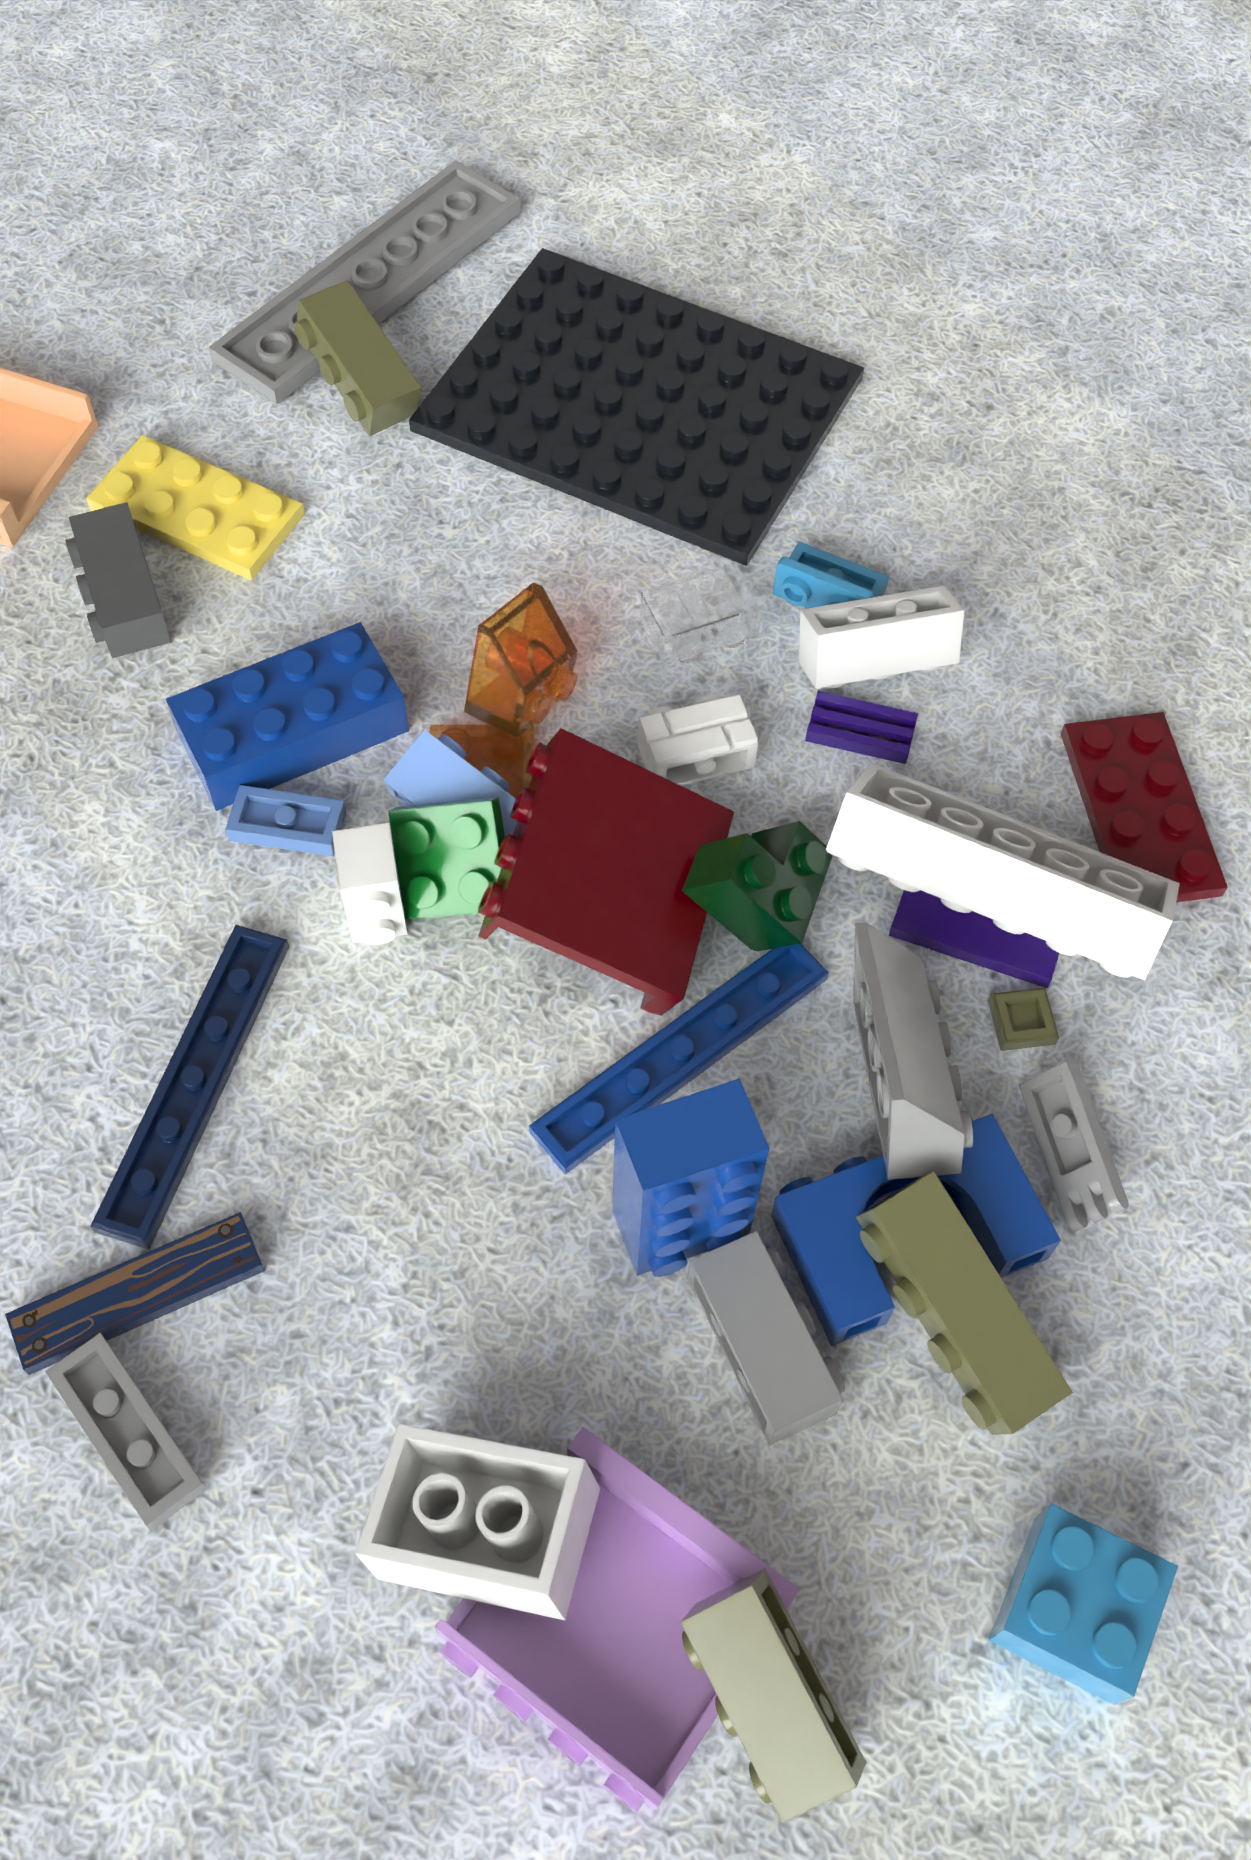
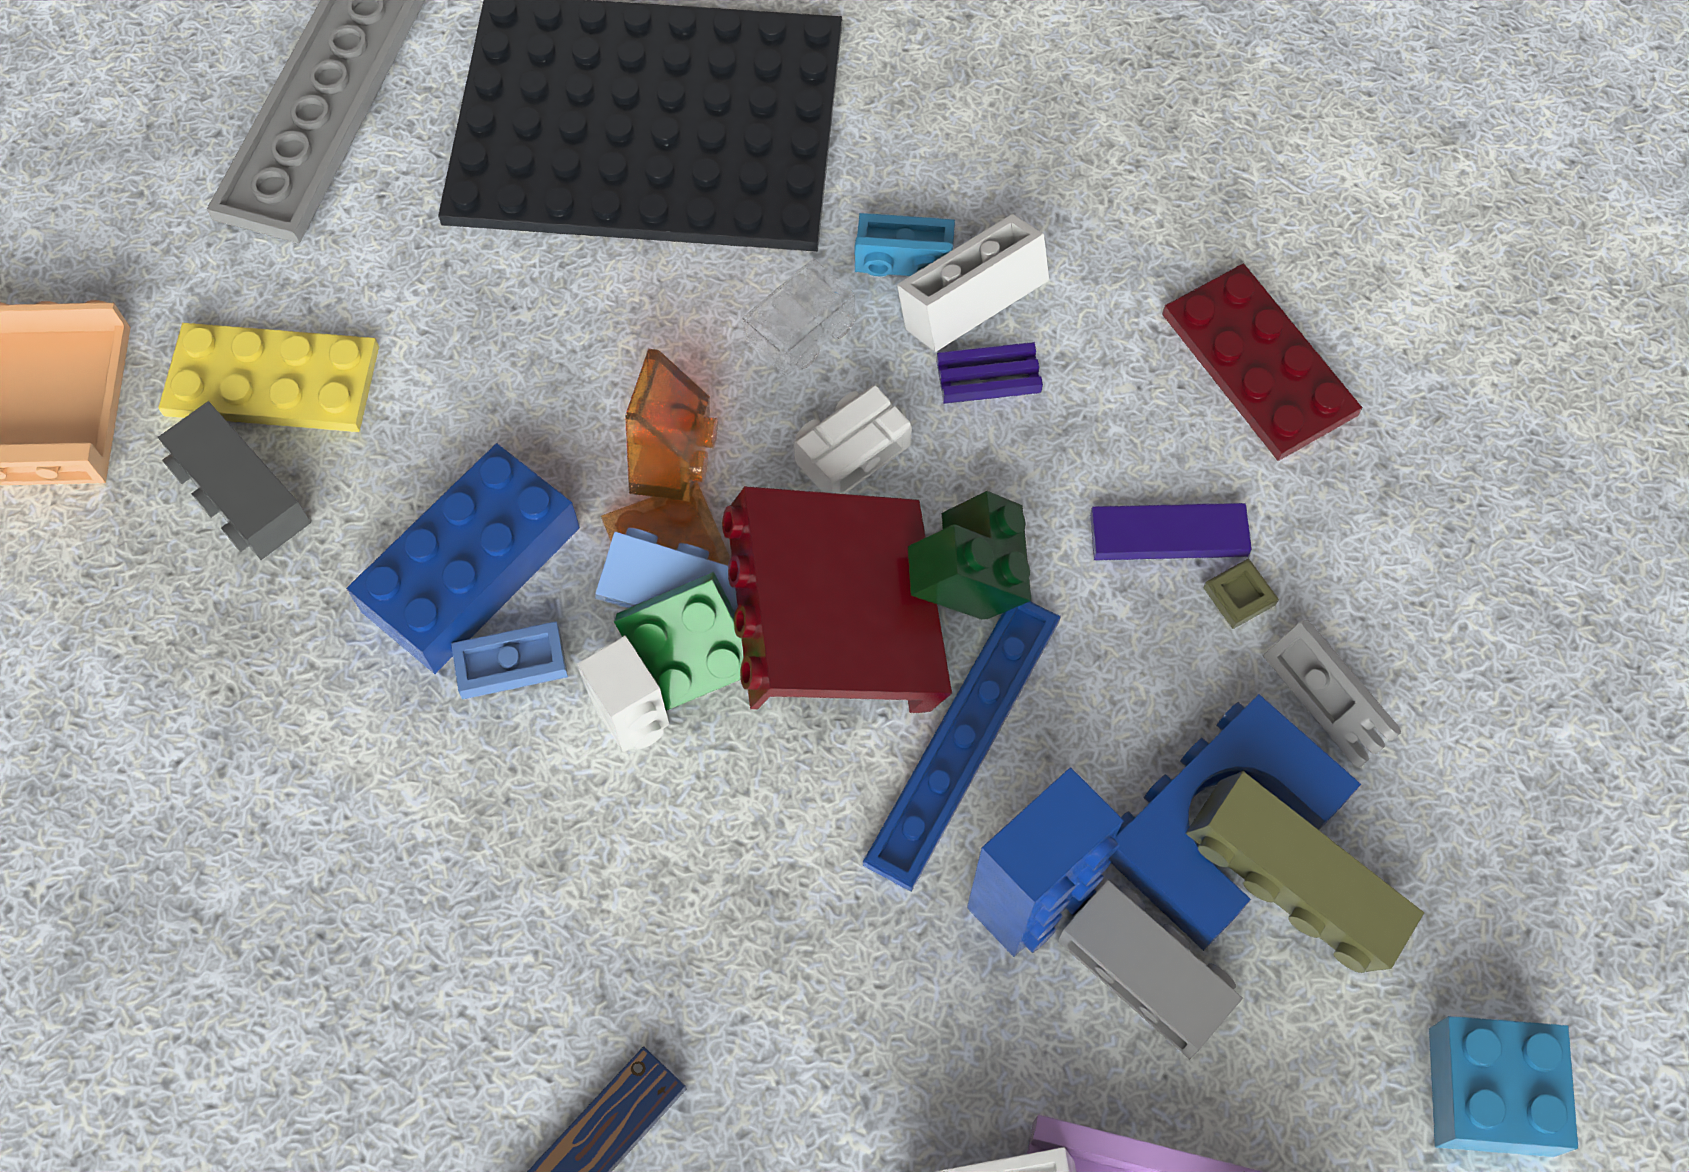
camera: 20 degrees left, 5 degrees up
(190, 1088) = (540, 948): dark blue tile -> none
(357, 358) = (362, 171): olive brick -> none
(907, 1059) = (1169, 676): light grey slope -> none
(1004, 871) = (1178, 467): white brick -> none

